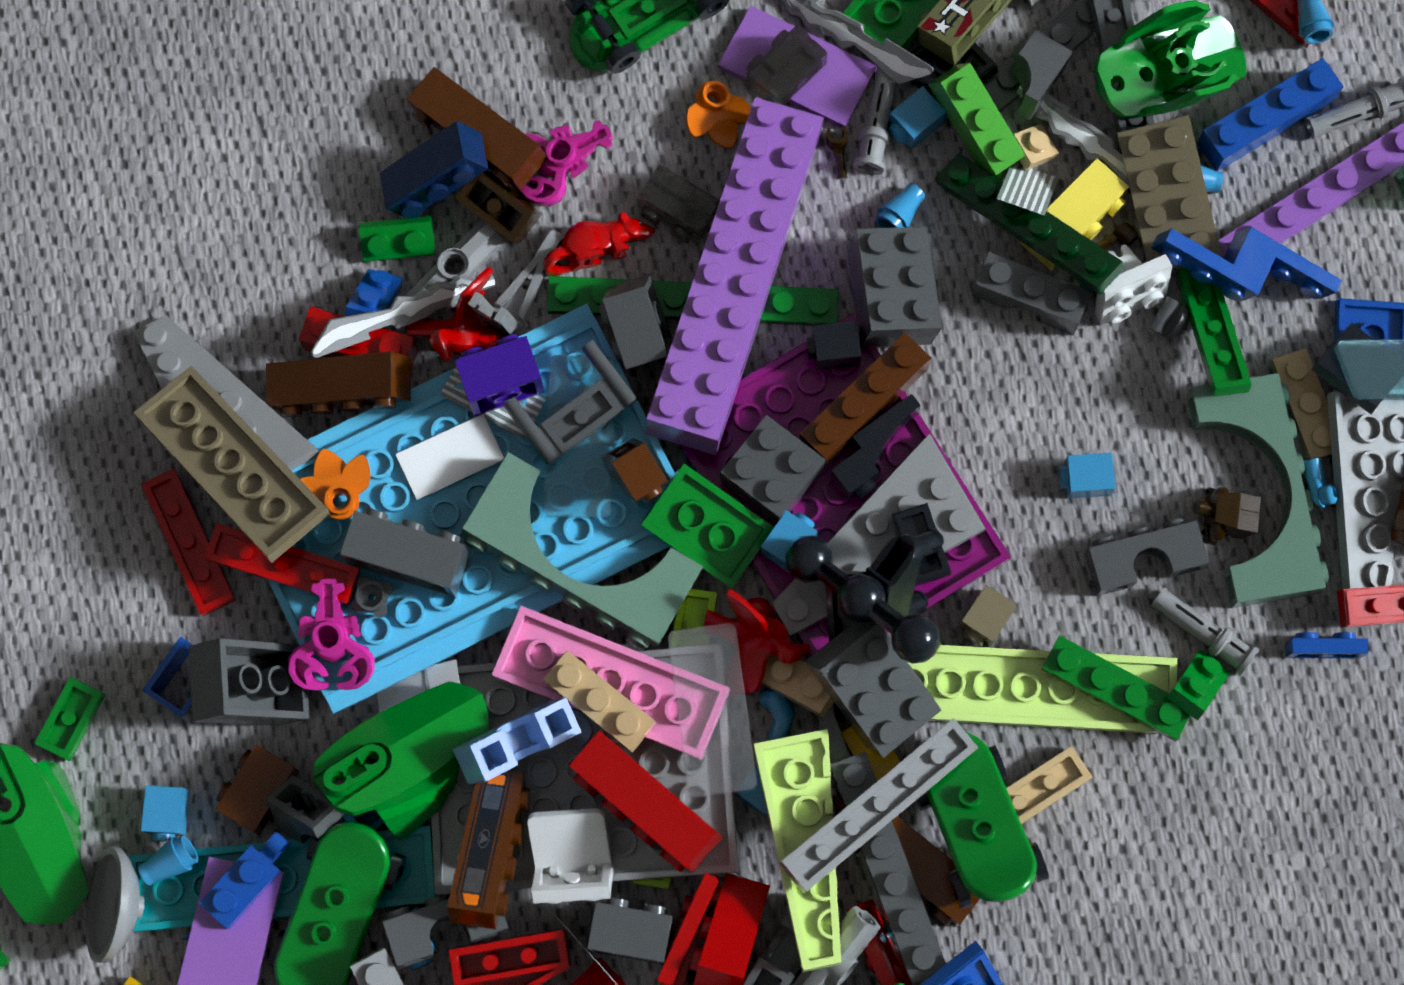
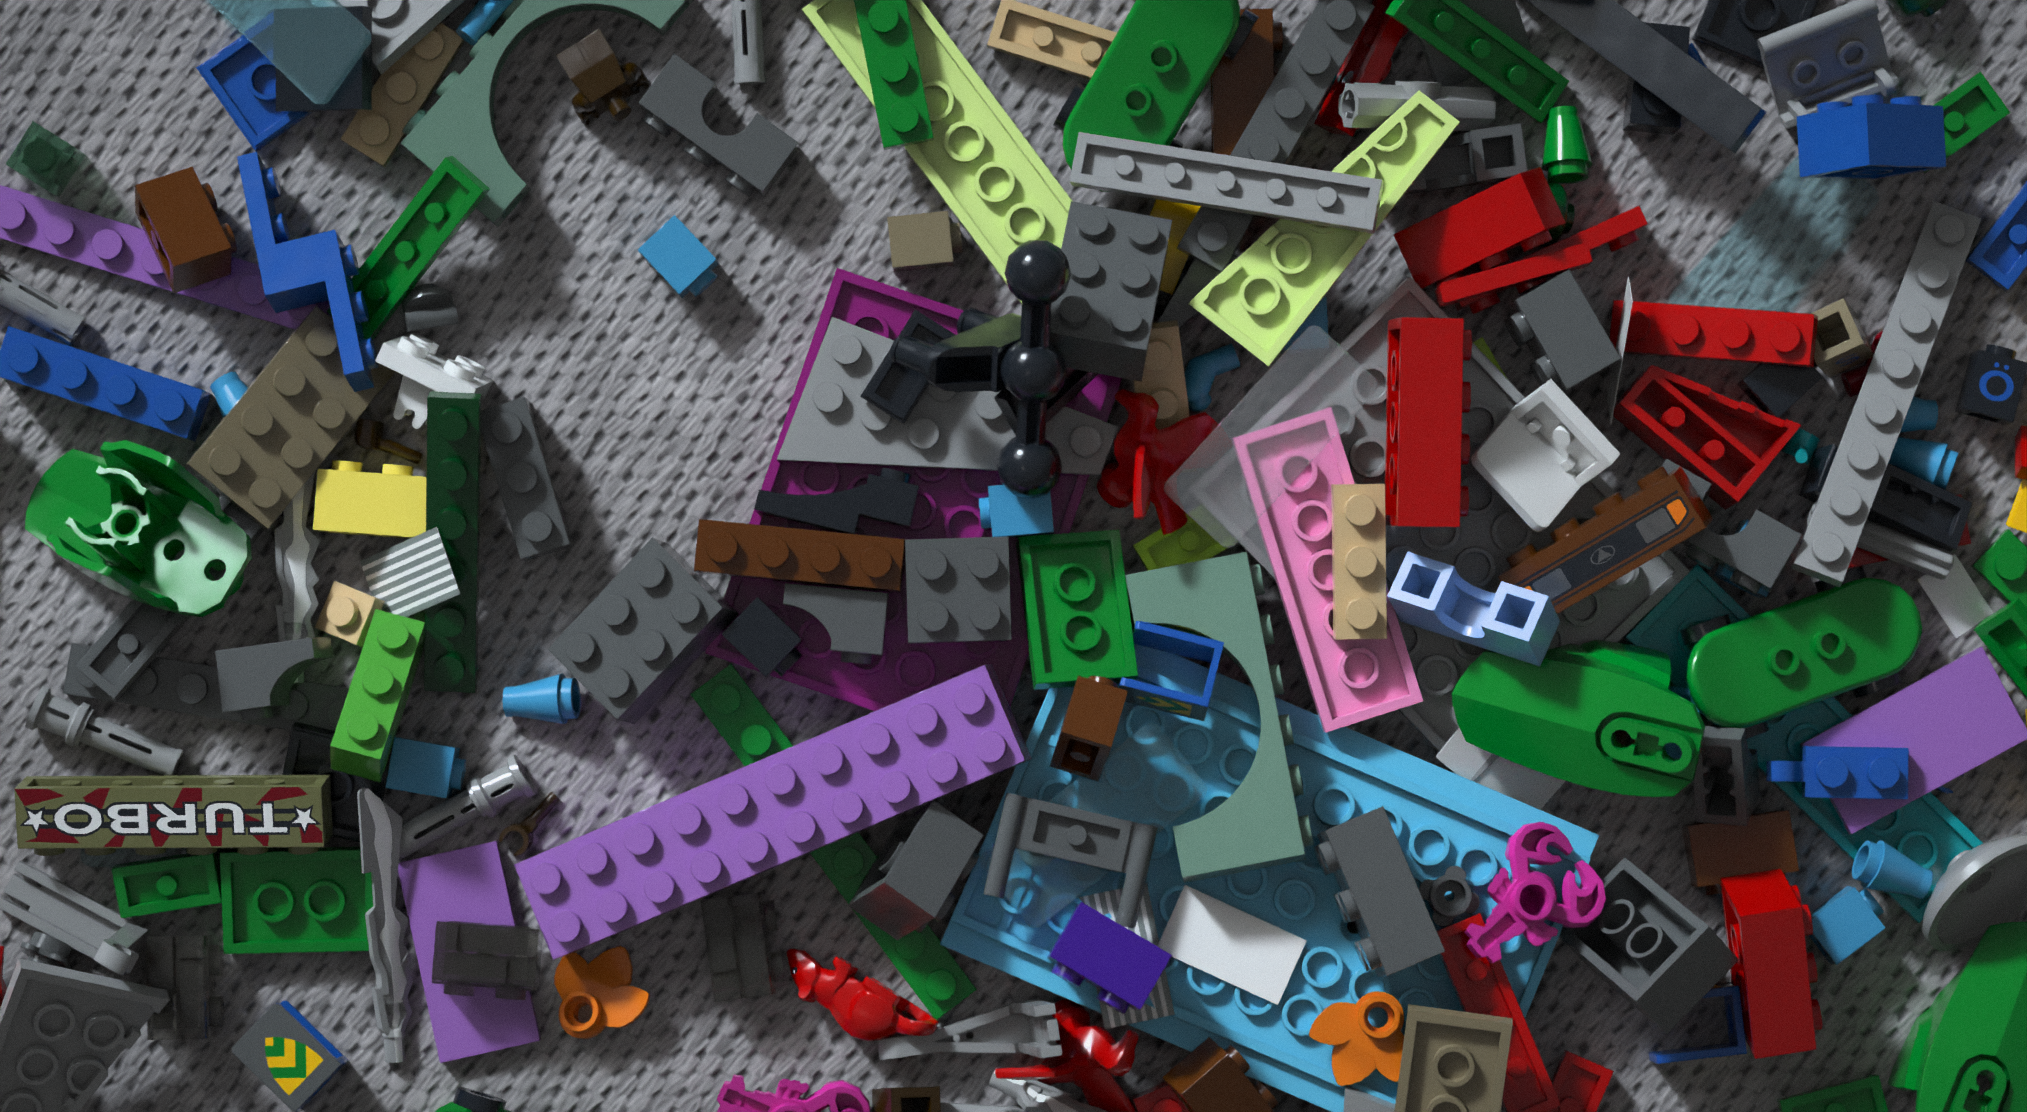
camera: 140 degrees left, 10 degrees up
(177, 746) = (1774, 970): none -> red brick
(604, 563) = (1179, 644): none -> blue piece
(803, 398) = (850, 616): none -> dark grey arch
(1322, 220) = (184, 229): none -> reddish brown brick

